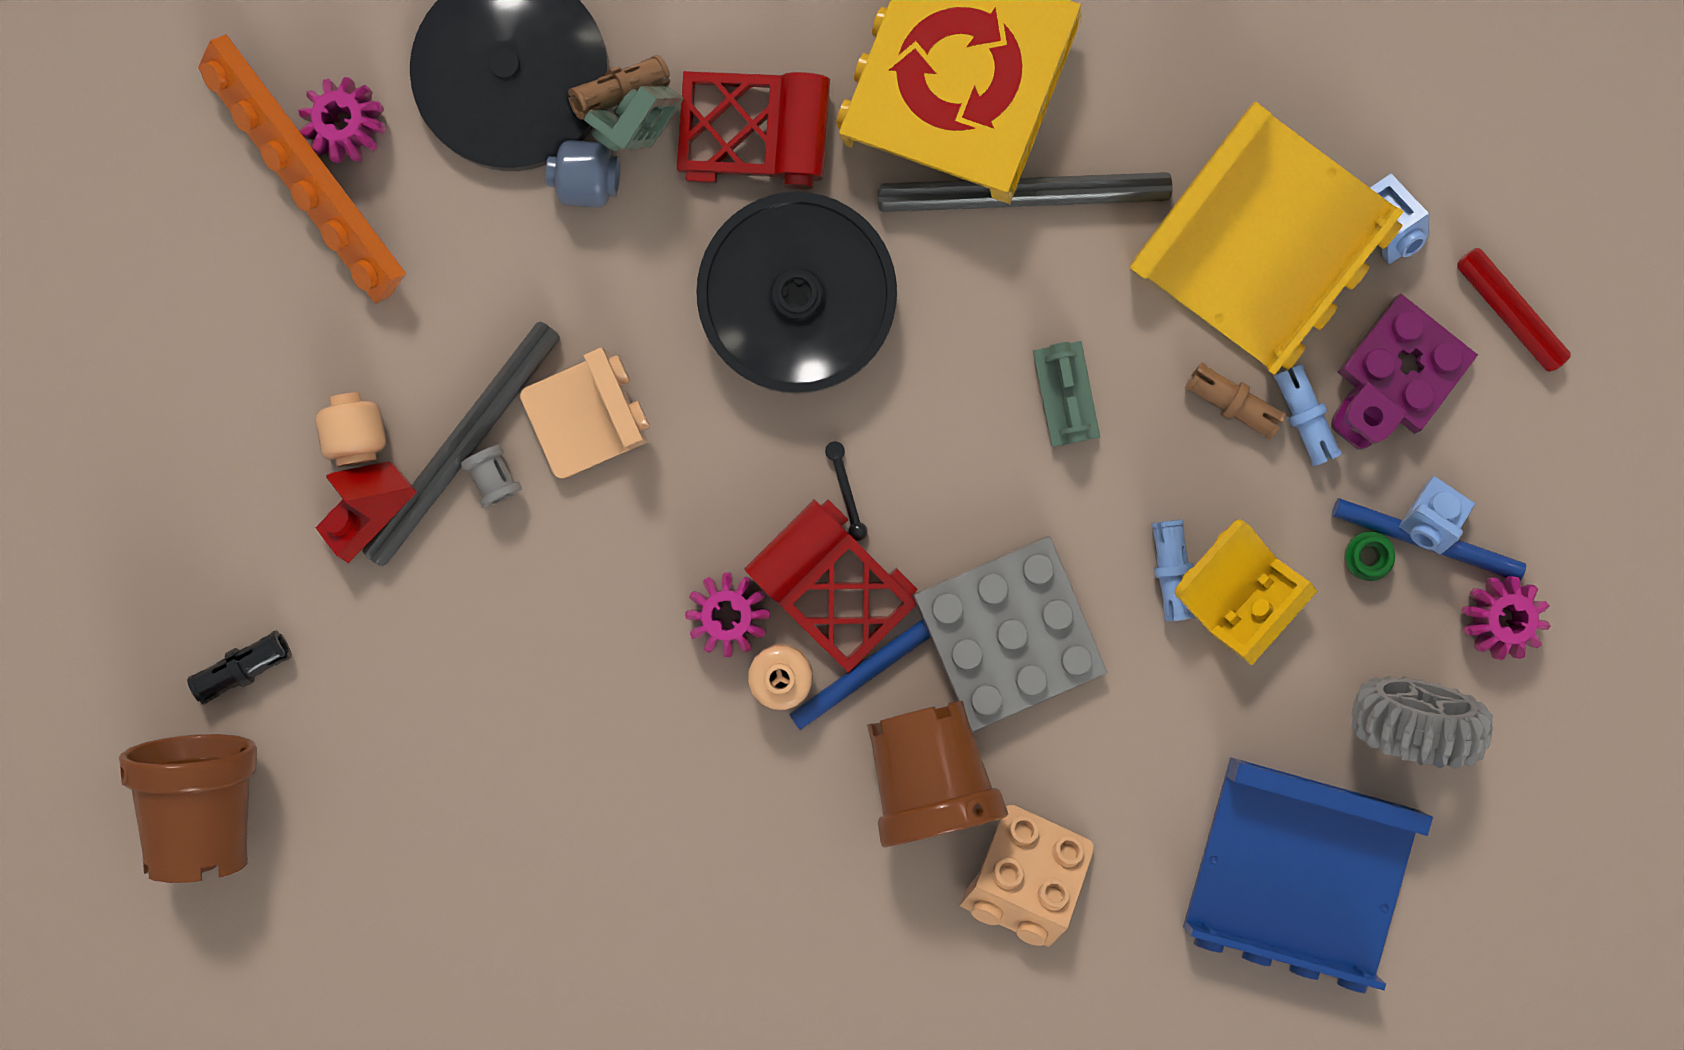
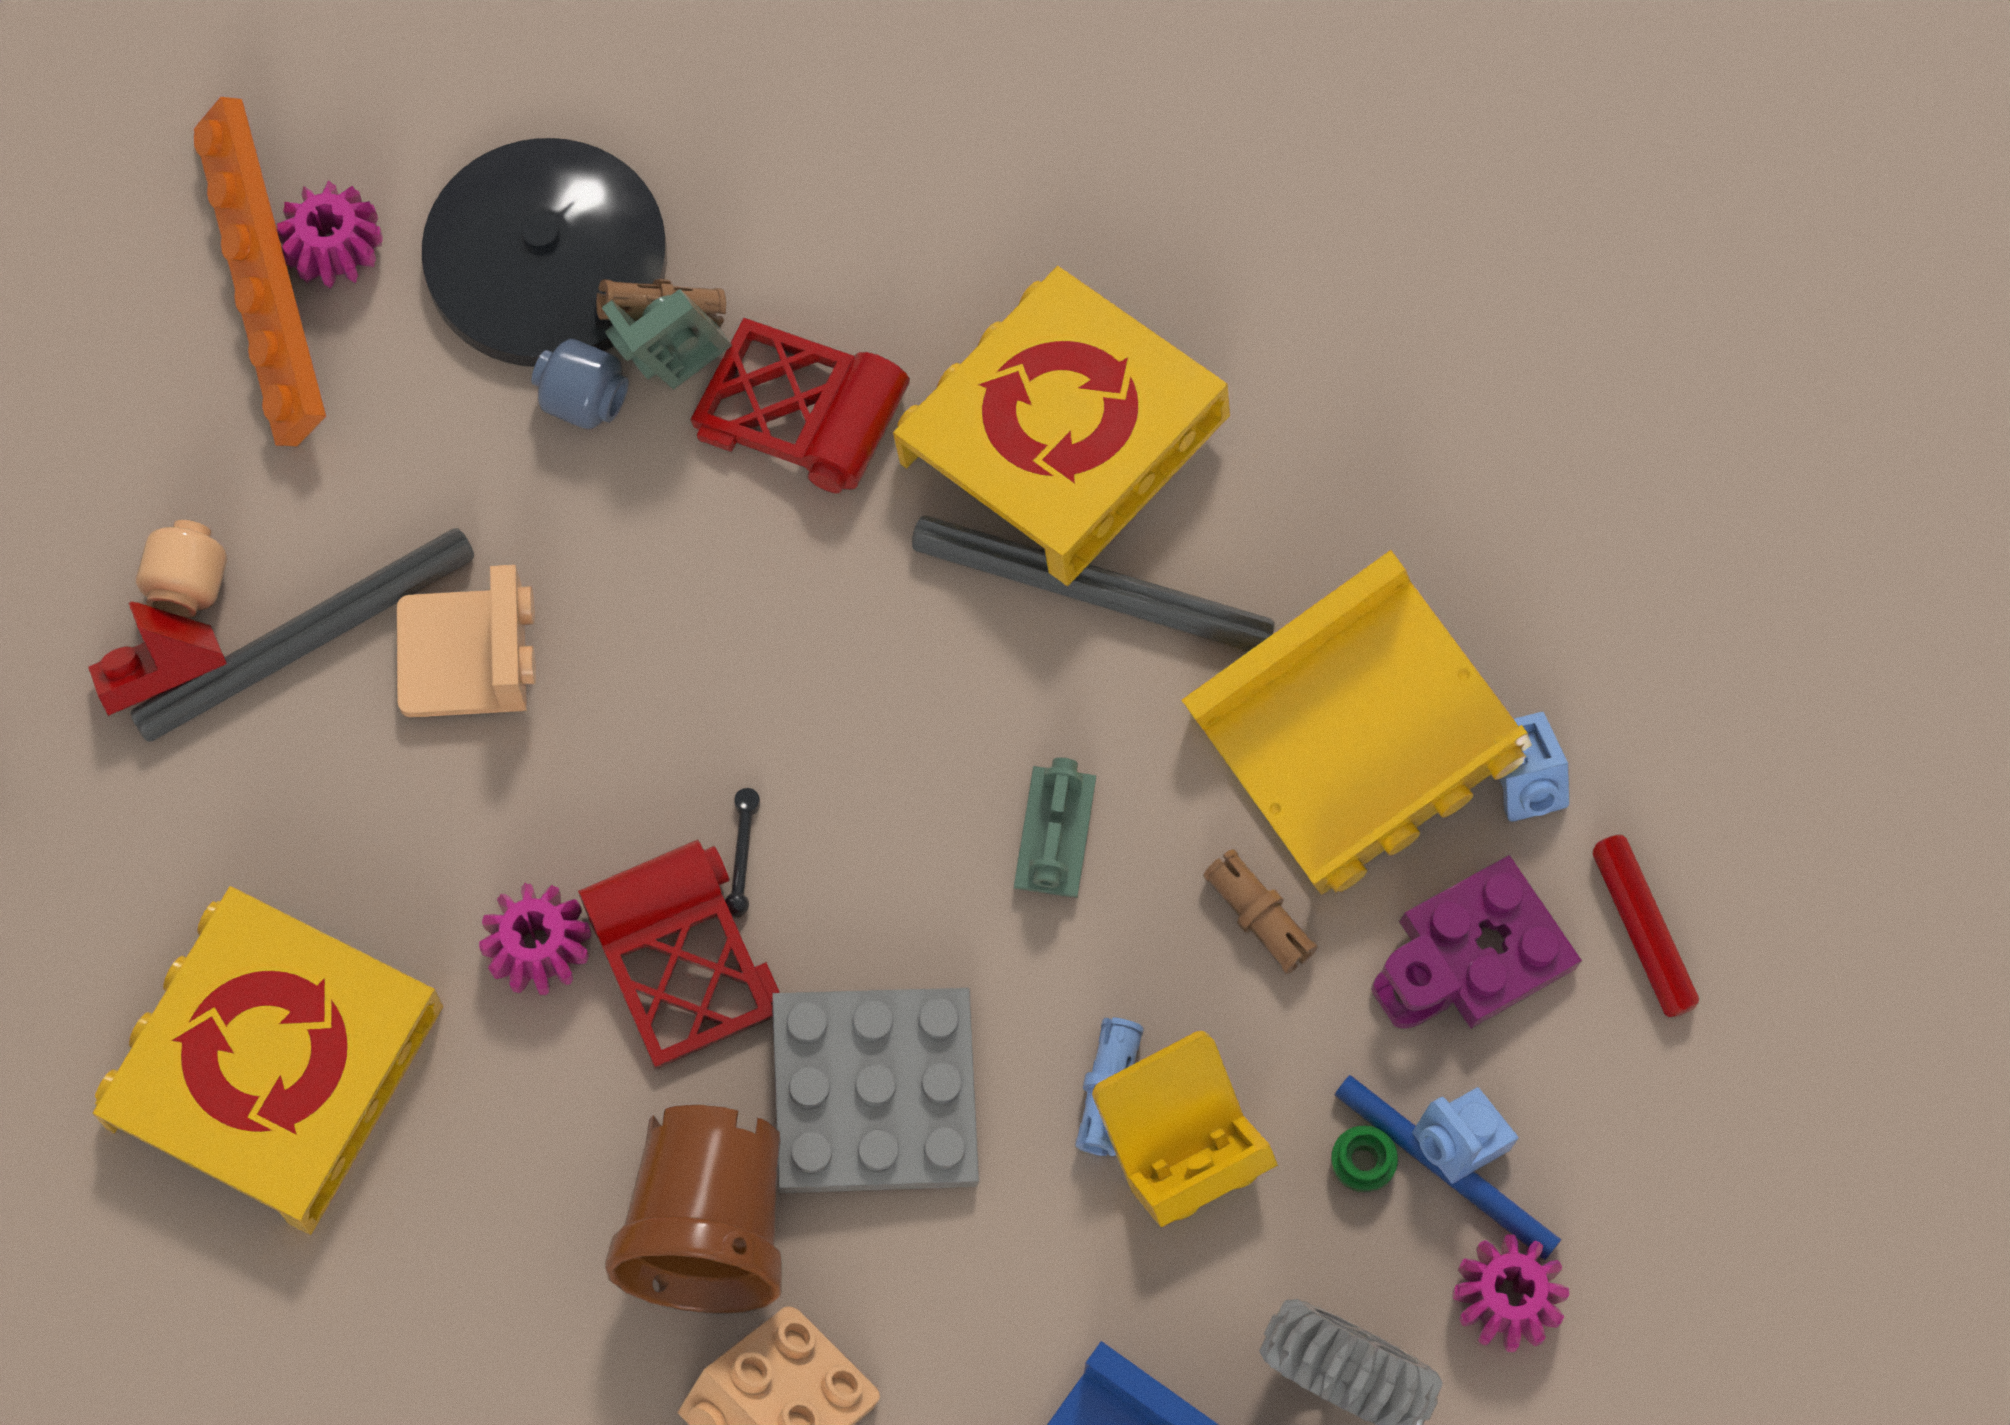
camera: 20 degrees right, 20 degrees down
(491, 476) = (322, 680): light grey bush -> none
(573, 772) = (268, 1056): none -> yellow panel
(777, 658) = (582, 1047): light nougat head -> none
(796, 292) = (772, 595): black dish -> none
(860, 675) = (668, 1078): blue bar -> none
(1307, 415) = (1344, 959): light blue pin -> none

